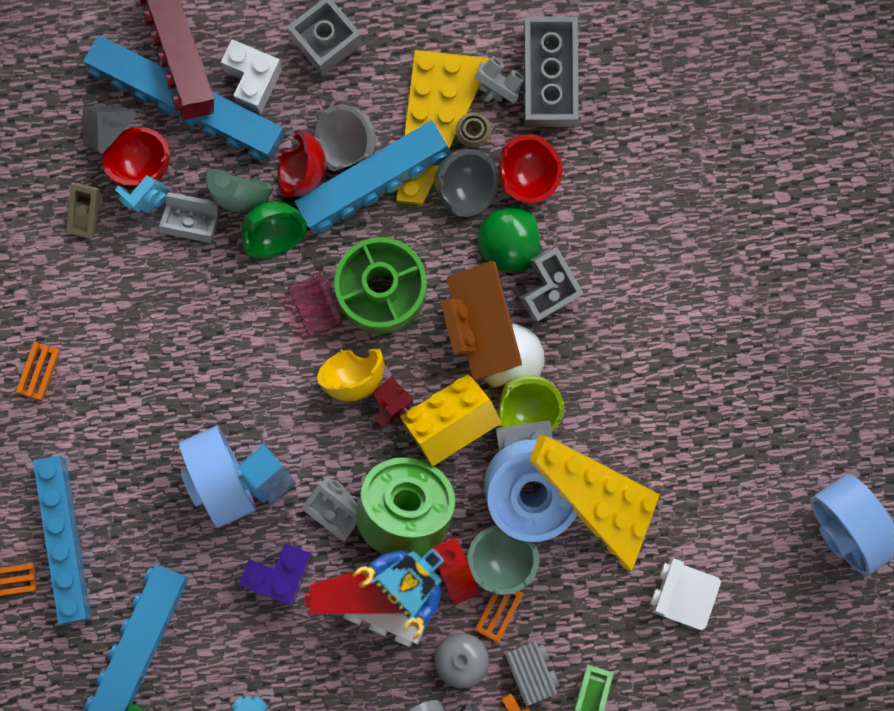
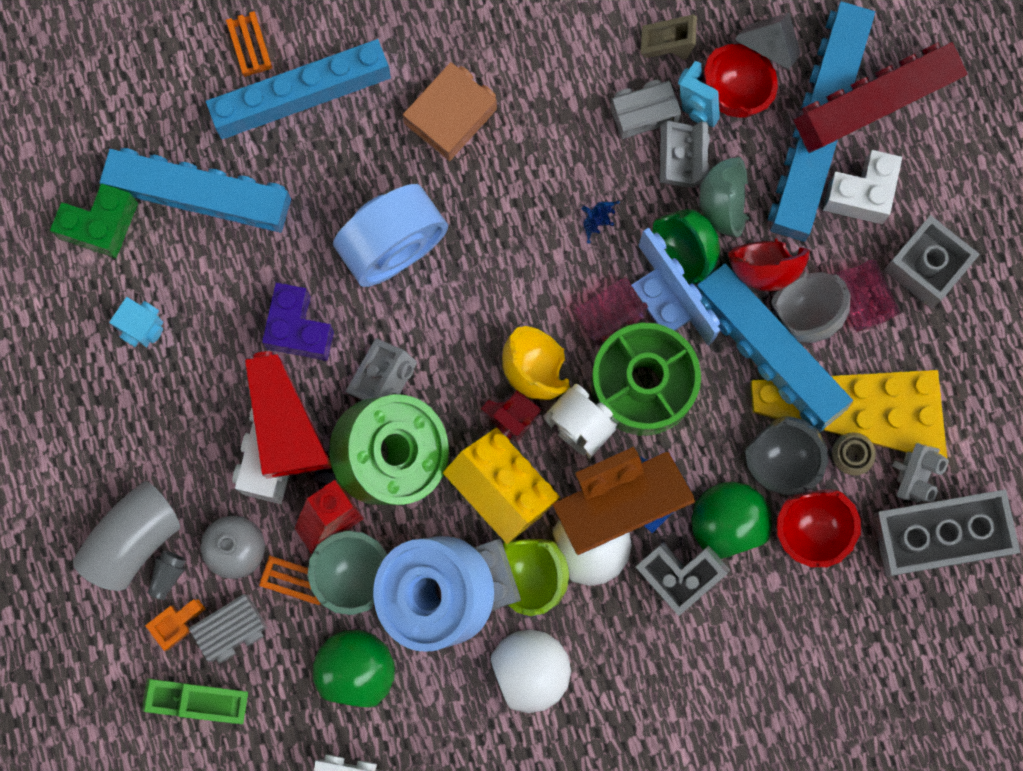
camera: 80 degrees right, 0 degrees up
(28, 367) = (485, 18): orange tile -> none
(109, 409) = (450, 110): none -> nougat brick
(142, 243) = (645, 108): none -> light grey brick
(230, 301) = (597, 217): none -> clear blue piece
(265, 476) = (391, 280): dark azure brick -> none
(310, 252) = (669, 295): none -> light blue bracket
(343, 88) = (870, 296): none -> clear pink bracket
(407, 344) = (581, 421): none -> white brick
(408, 584) = (289, 461): torso -> none
(581, 572) = (353, 669): none -> green cylinder
(602, 498) = (435, 677): yellow wing -> none
(606, 424) = (531, 670): none -> white cylinder

